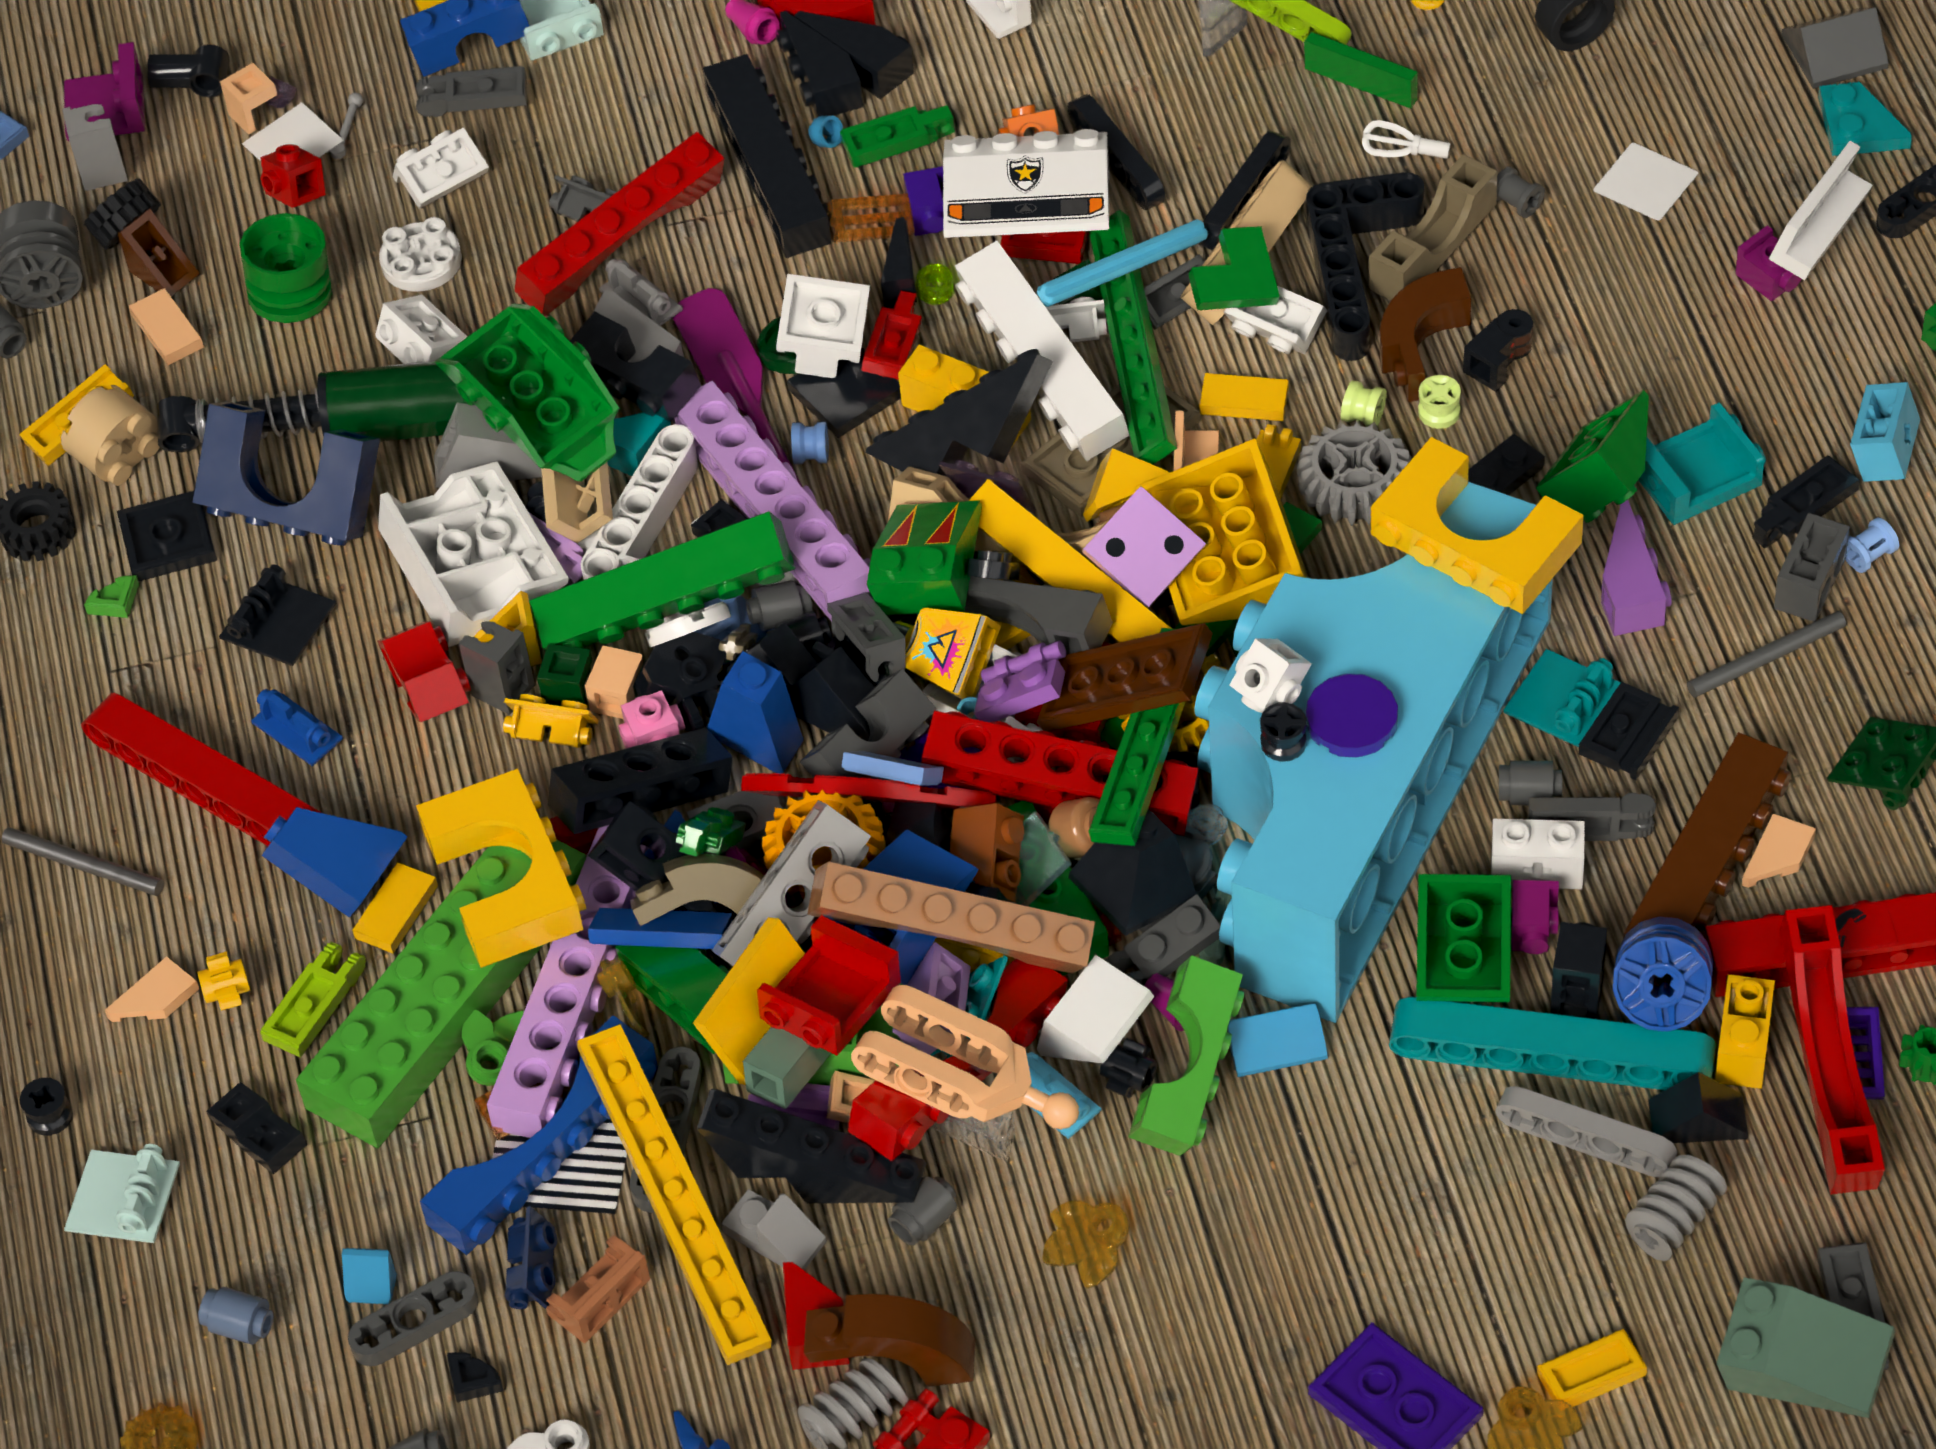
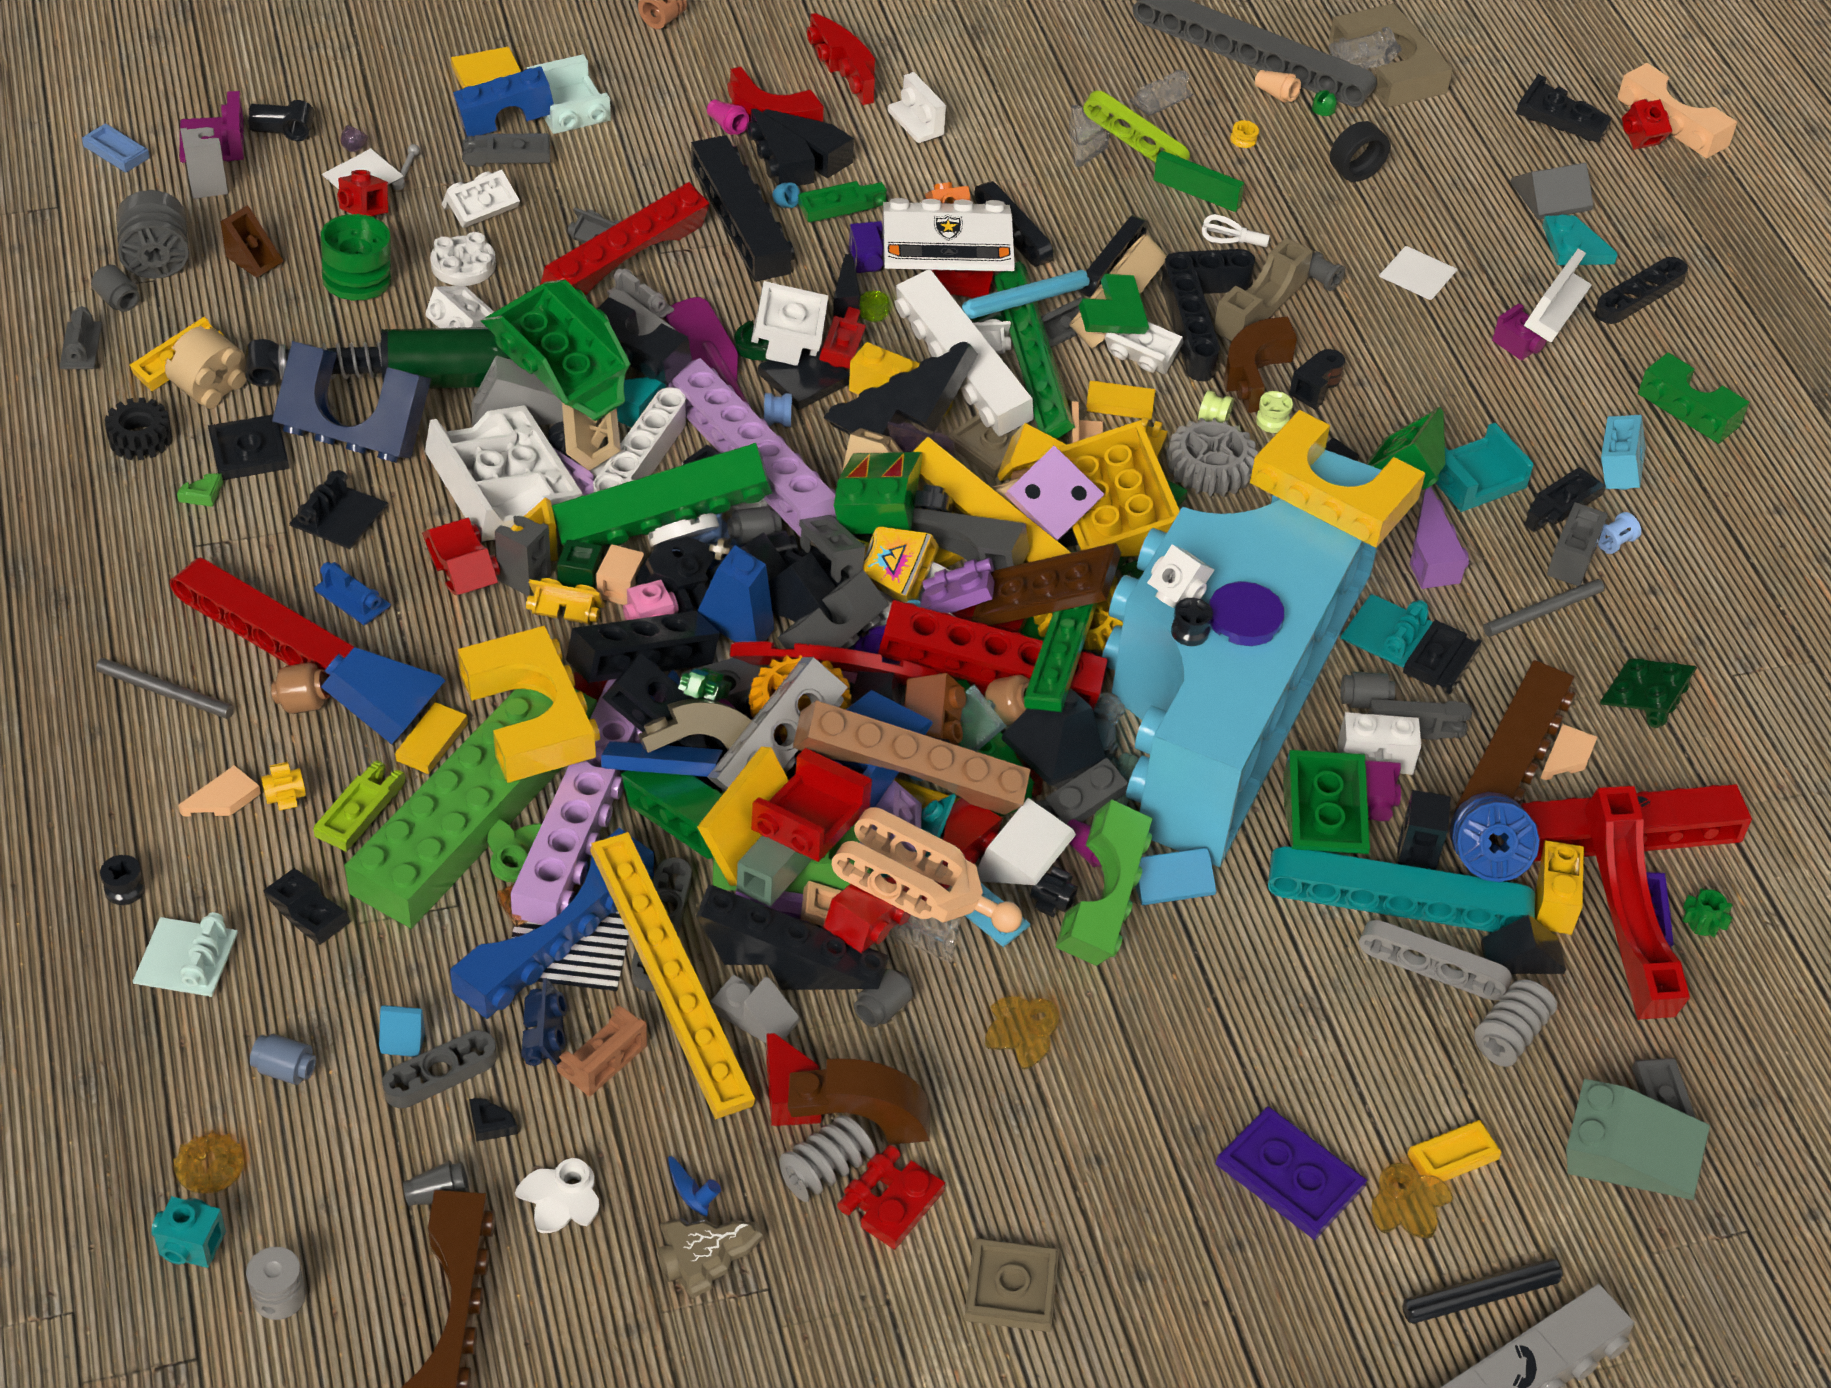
camera: 10 degrees left, 5 degrees down
(120, 211) = (219, 207): black tyre -> none
(166, 326) = (254, 296): light nougat tile -> none
(237, 854) = (300, 688): none -> medium nougat head
(244, 92) = (327, 135): light nougat panel -> none
(618, 981) = (624, 800): clear yellow plate -> none
(839, 221) = (818, 242): clear orange tile -> none
(892, 768) = (858, 642): medium blue tile -> none

